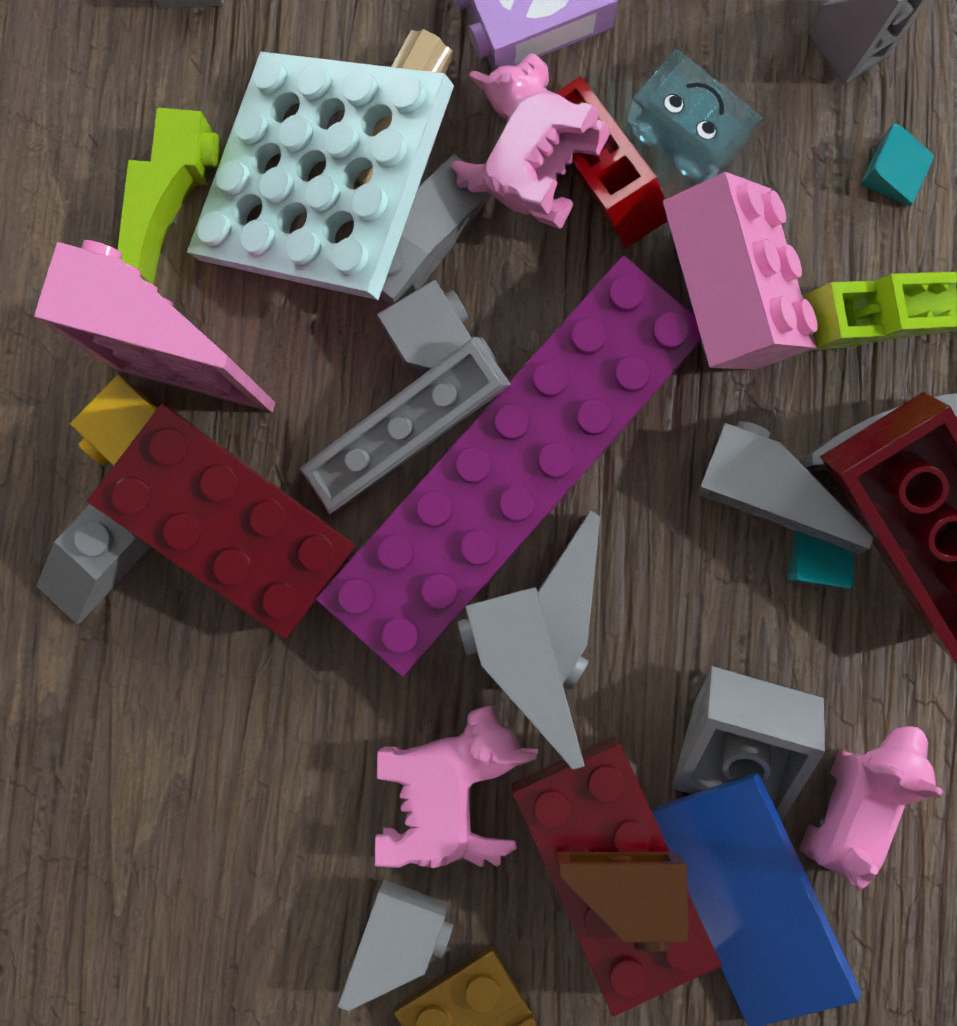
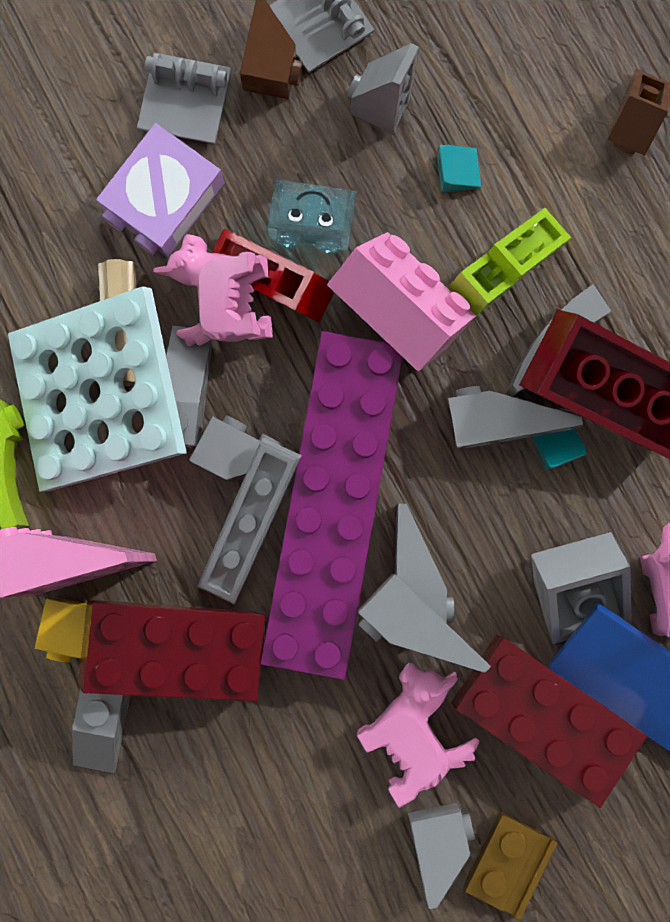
camera: 40 degrees left, 0 degrees up
(633, 893) = (566, 725): reddish brown slope -> none

